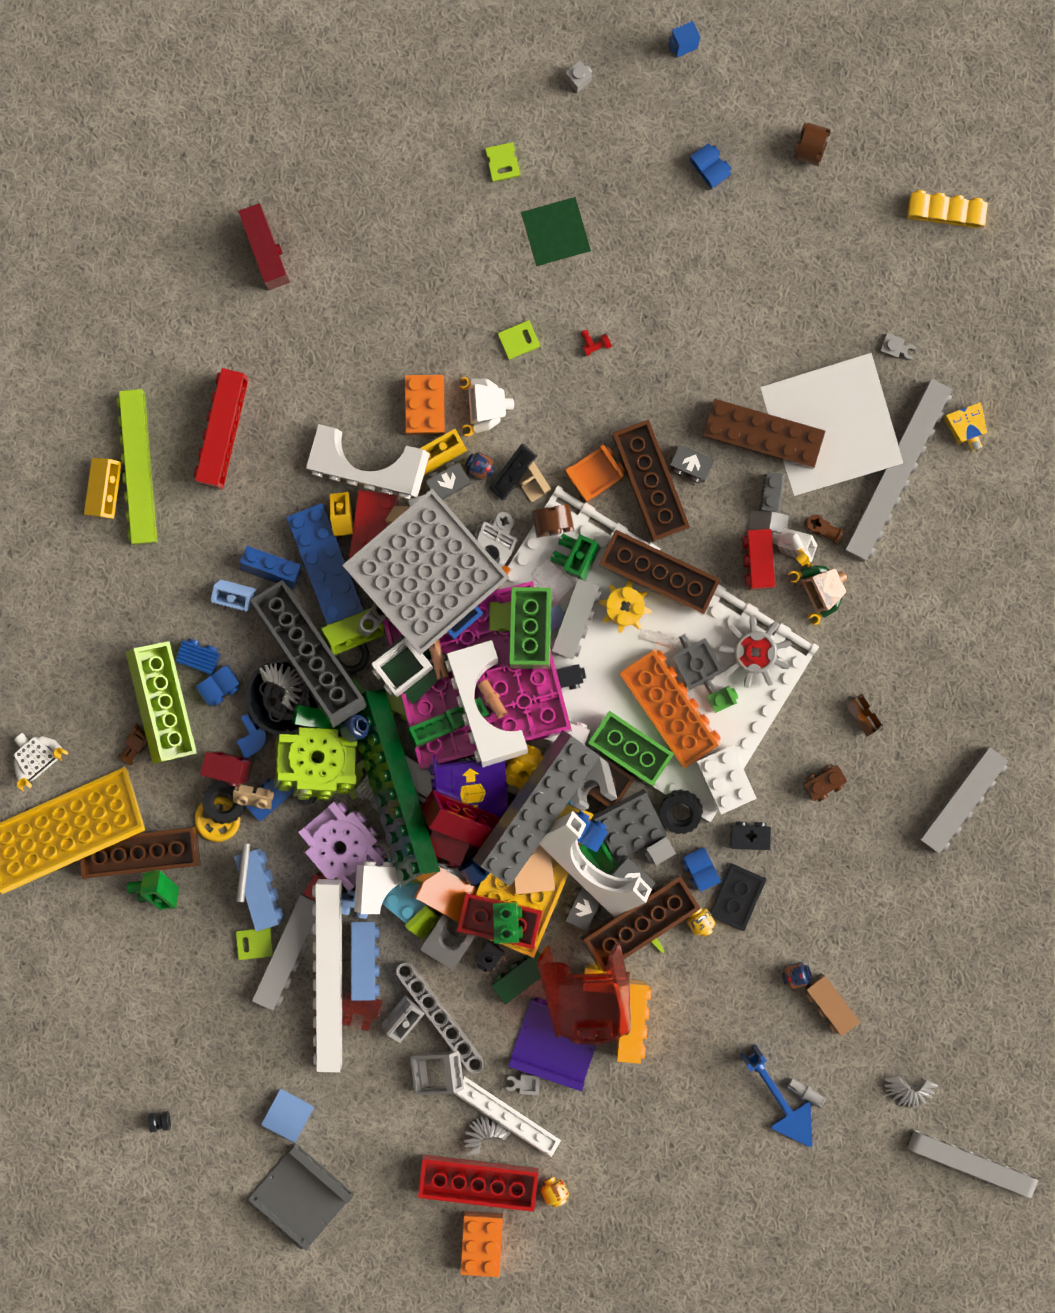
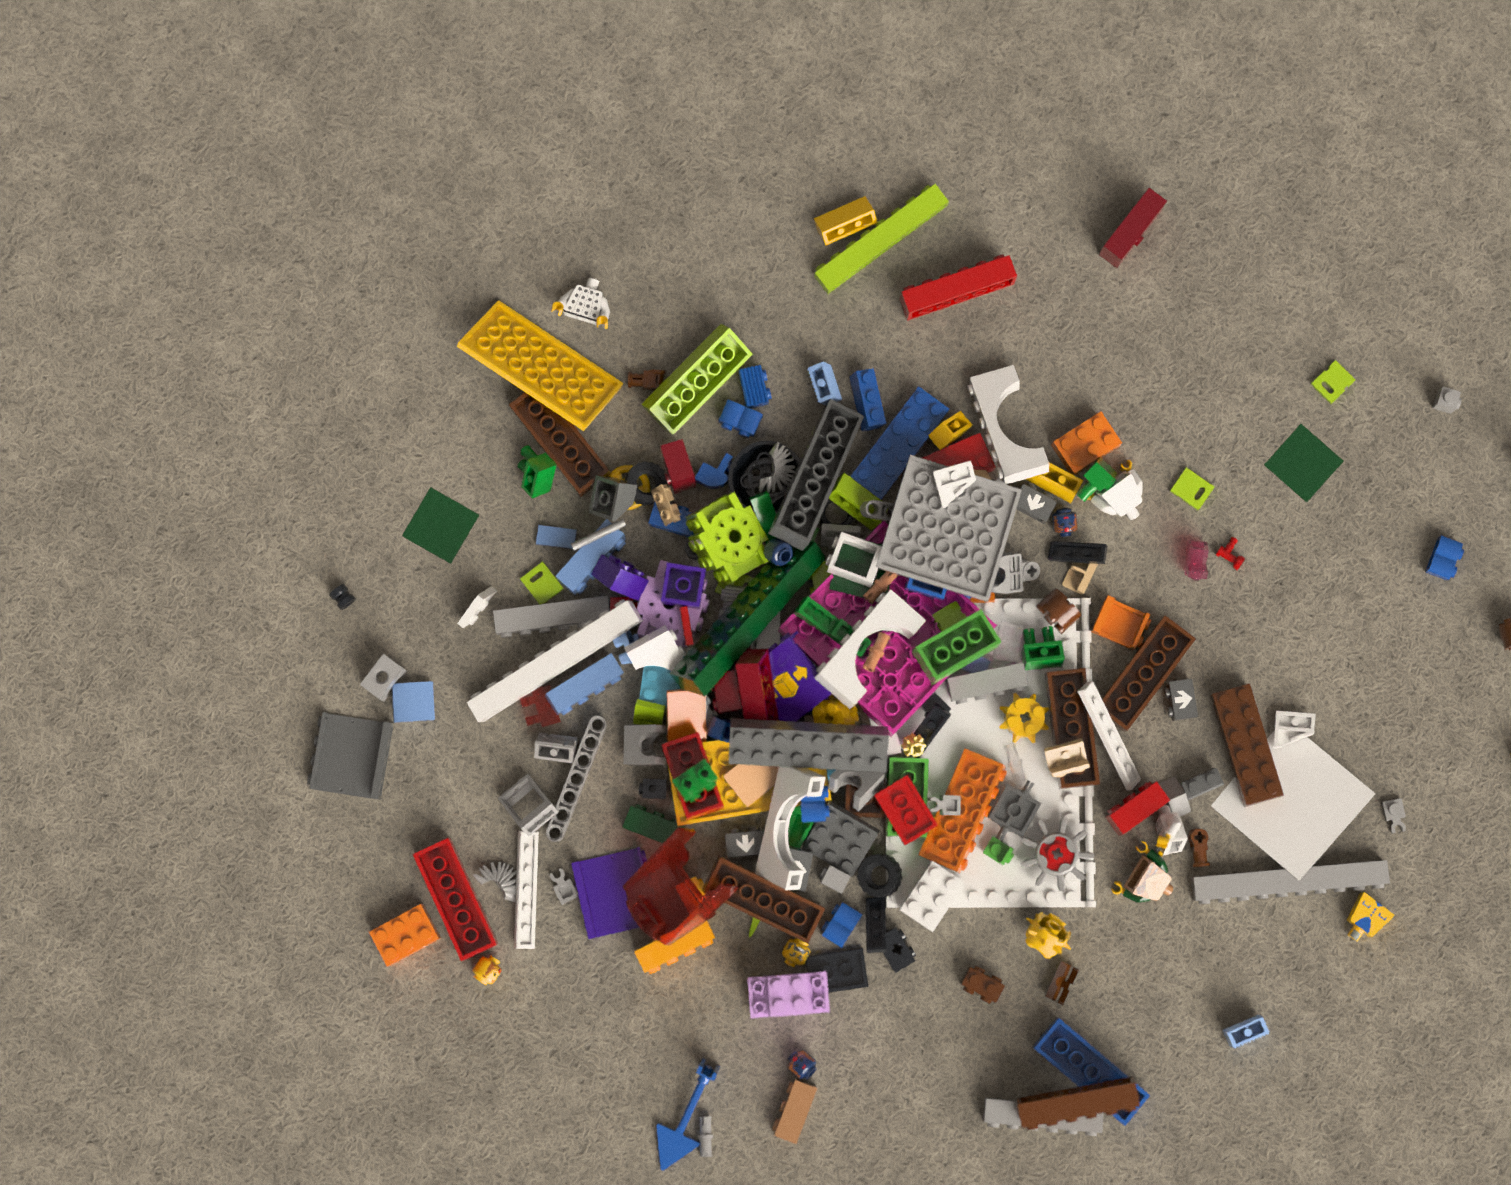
camera: 55 degrees right, 5 degrees down
(150, 999) = (440, 525): none -> dark green piece
(217, 840) = (611, 497): none -> dark grey slope
(221, 906) = (555, 536): none -> medium blue tile
(239, 1011) = (479, 604): none -> white wing
(250, 1118) = (381, 689): none -> light grey piece
(291, 876) = (620, 576): none -> dark purple brick
(333, 828) = (683, 585): none -> dark purple brick
(364, 669) = (830, 531): none -> light grey plate
(369, 846) = (686, 626): none -> red tile
(388, 543) = (952, 481): none -> white wing
(461, 414) = (1099, 477): none -> green brick
(581, 375) = (1196, 560): none -> clear pink brick
(585, 695) = (932, 724): none -> black tile
(590, 716) = (913, 745): none -> light yellow gear
(641, 758) = (905, 810): none -> red plate
(658, 718) = (946, 805): none -> light grey plate
(682, 594) = (1066, 758): none -> tan bracket
(684, 544) = (1109, 735): none -> white tile
(720, 841) = (876, 925): none -> black tile
(733, 952) = (788, 994): none -> lavender piece
(772, 385) = (1292, 727): none -> white wing
(817, 702) = (1047, 934): none -> yellow brick
(952, 737) = (1081, 1061): none -> blue brick
(973, 767) = (1078, 1102): none -> reddish brown brick
(999, 587) = (1246, 1031): none -> light blue brick

